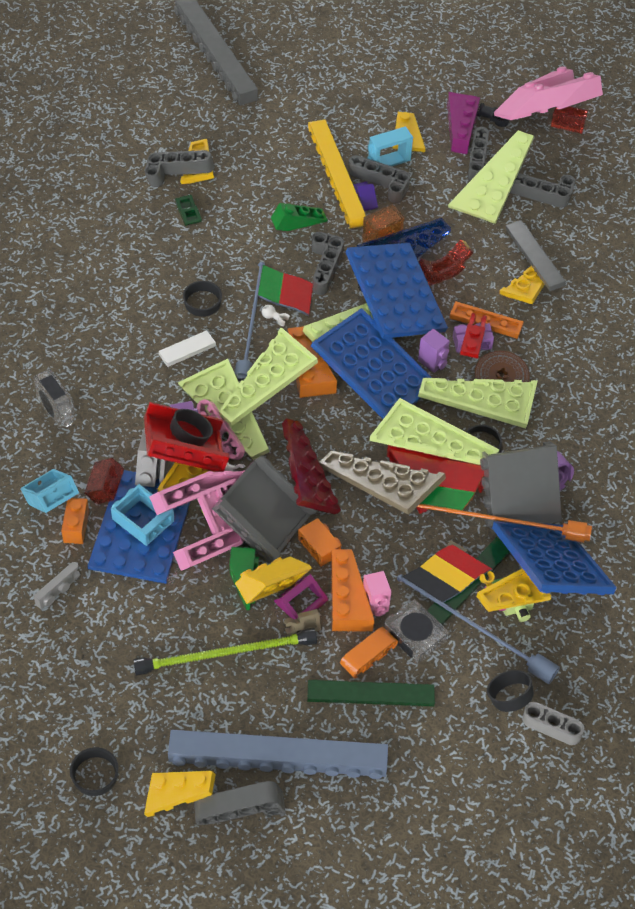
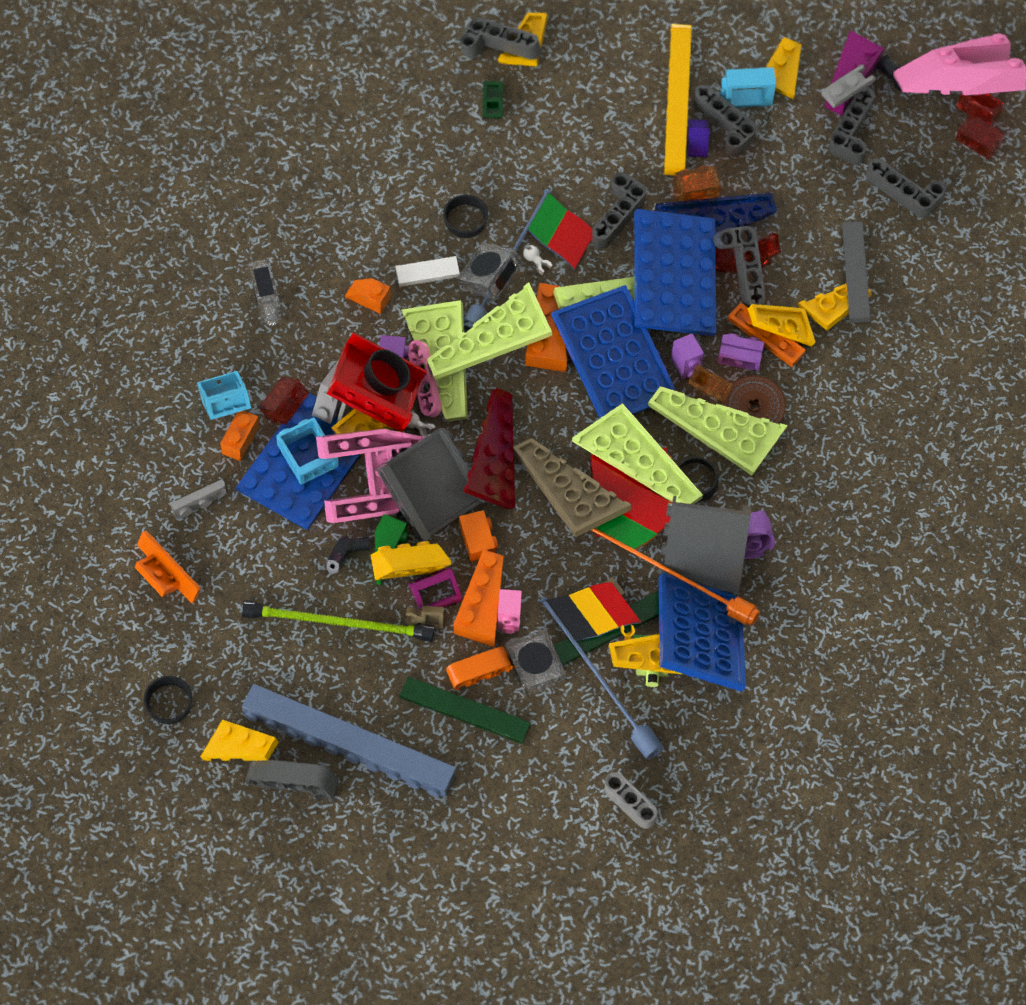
camera: 20 degrees right, 10 degrees up
(47, 656) = (163, 571): none -> orange bracket
(145, 377) = (369, 294): none -> orange slope
(206, 587) = (342, 550): none -> black arm
(241, 332) = (489, 270): none -> clear brick
(292, 217) = (609, 144): green slope -> none
(449, 266) = (743, 267): none -> dark grey beam
(461, 366) = (709, 383): none -> clear orange slope
(466, 127) = (847, 86): none -> light grey hinge
(473, 337) = (737, 354): red hinge -> none
(491, 186) = (844, 170): yellowish green wing -> none
(497, 304) = (783, 321): none -> yellow wing
(508, 678) = (598, 741): black tyre -> none
(579, 140) = (979, 136): none -> clear red brick

